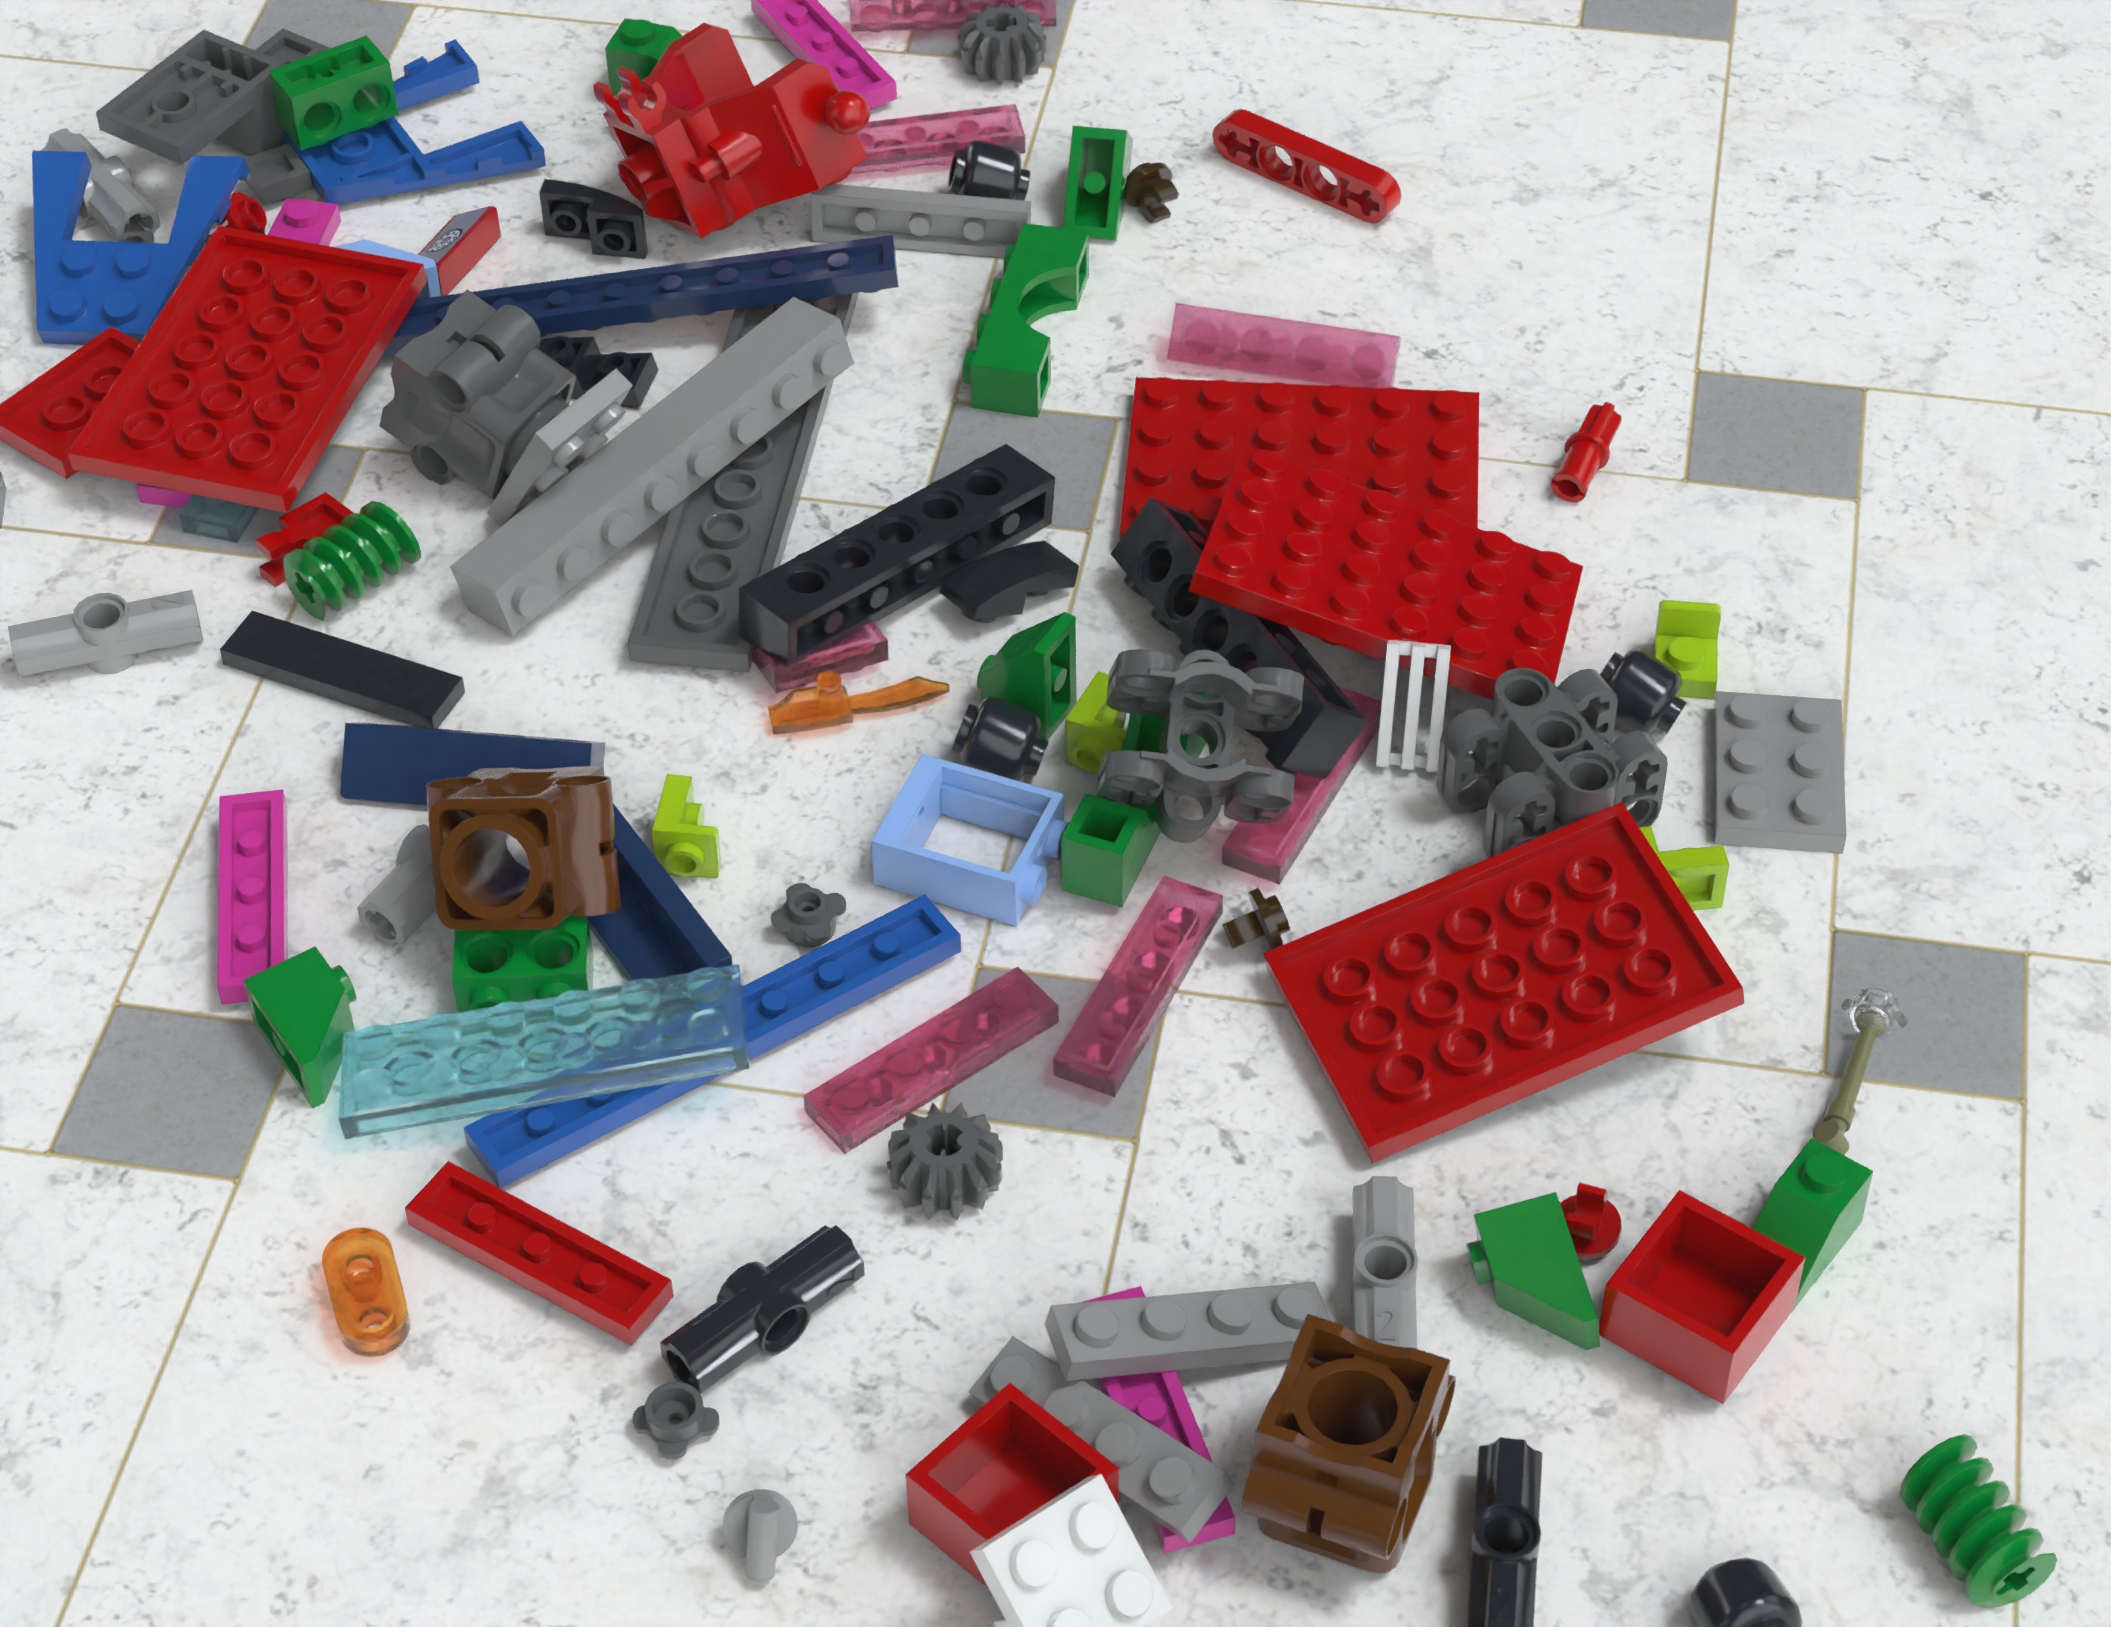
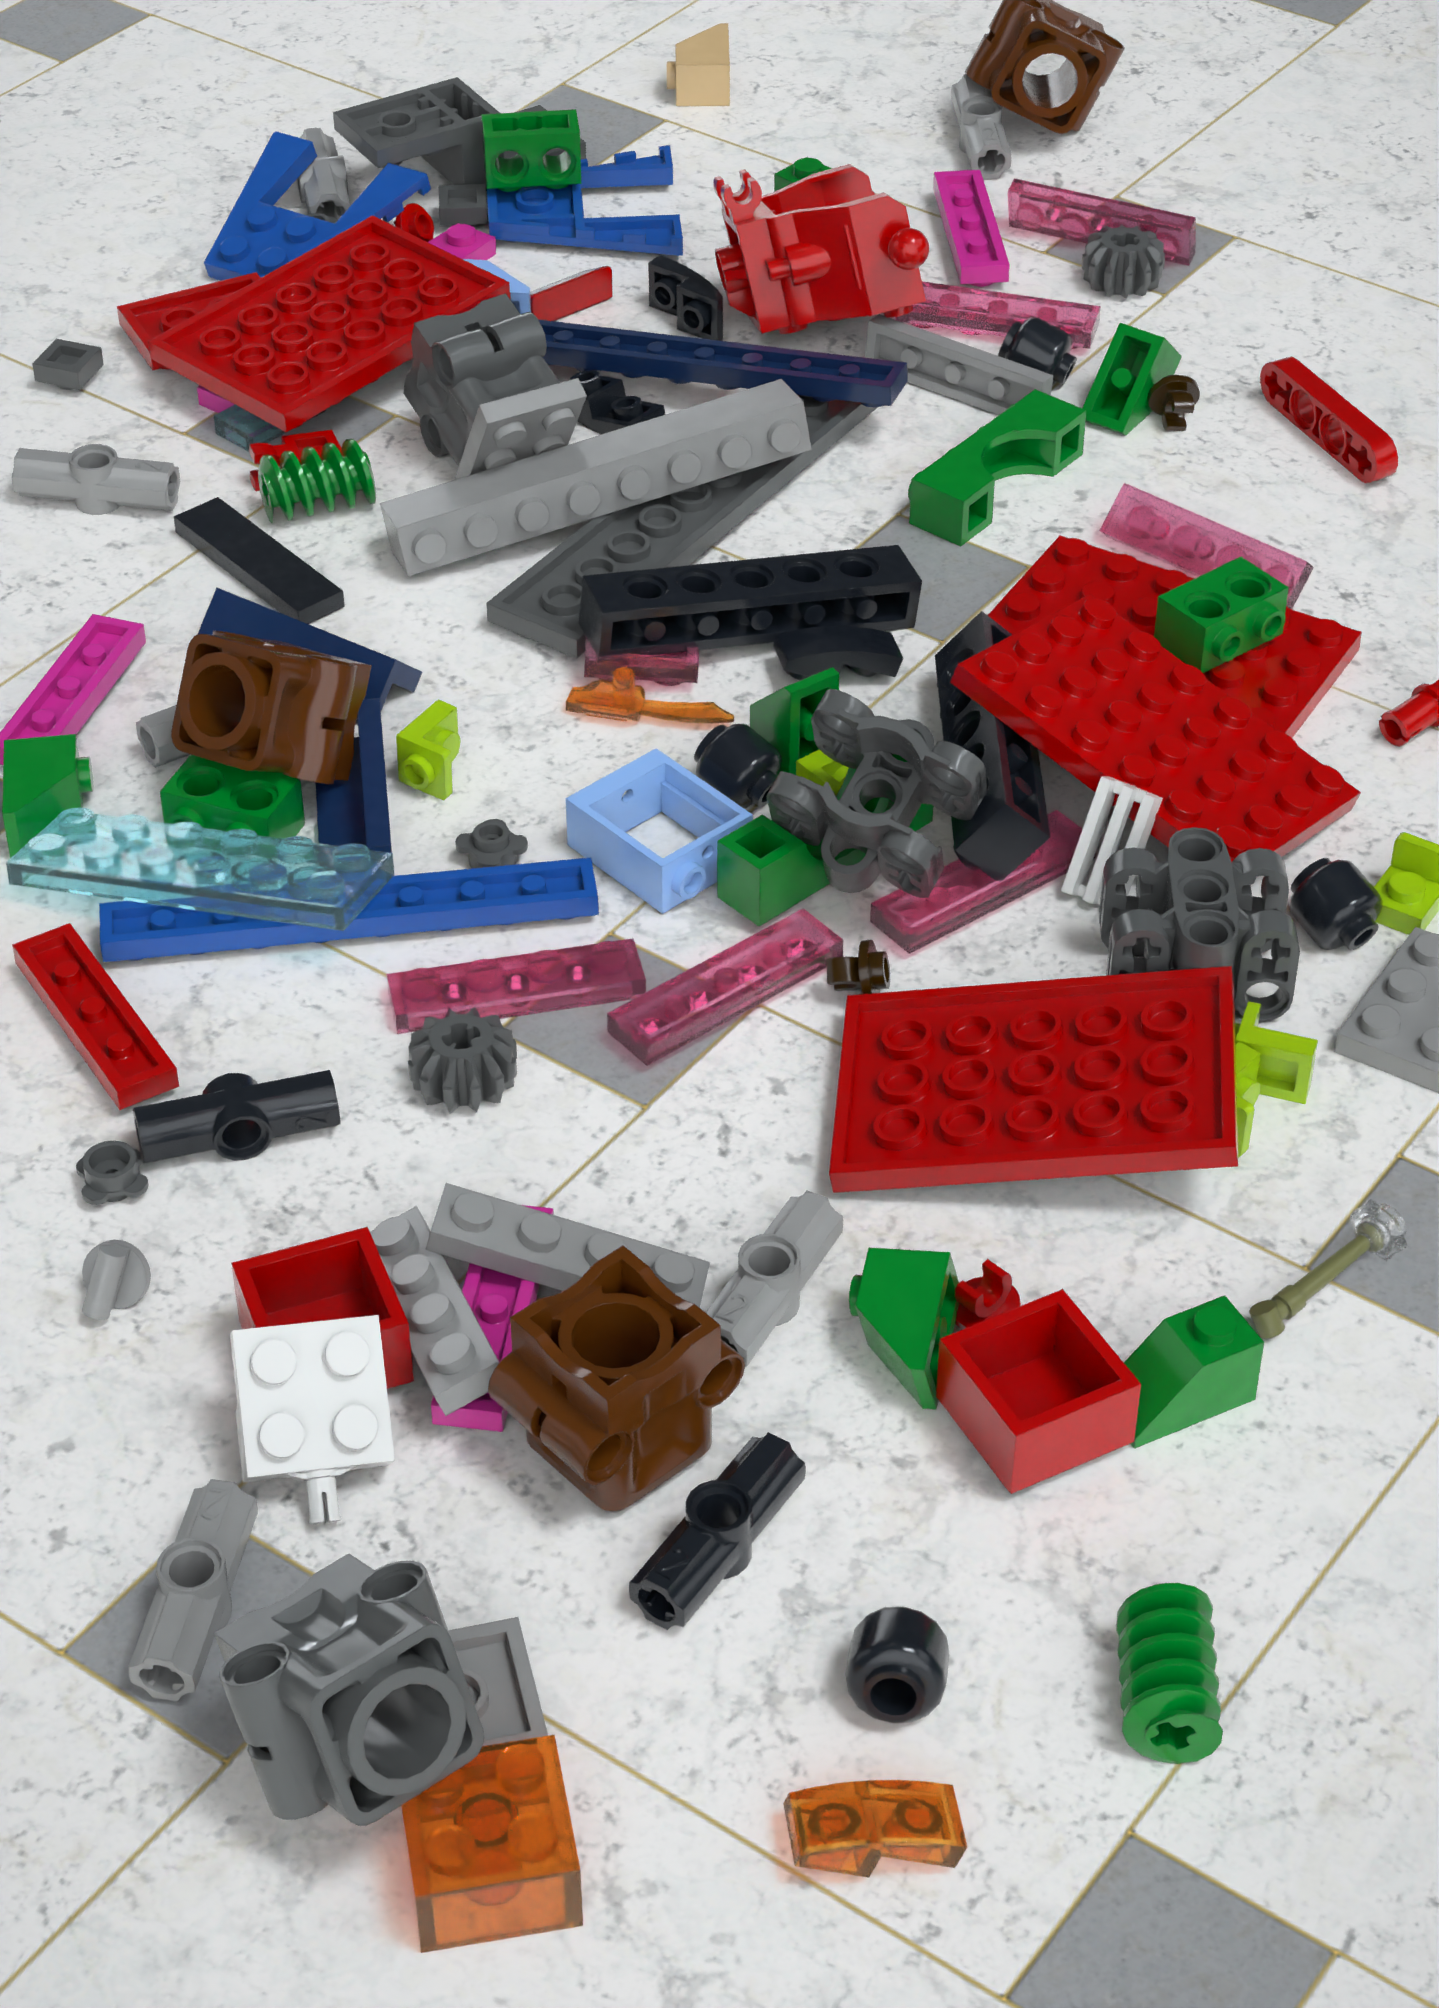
camera: 25 degrees right, 5 degrees down
(1363, 422) = (1221, 614): none -> green brick

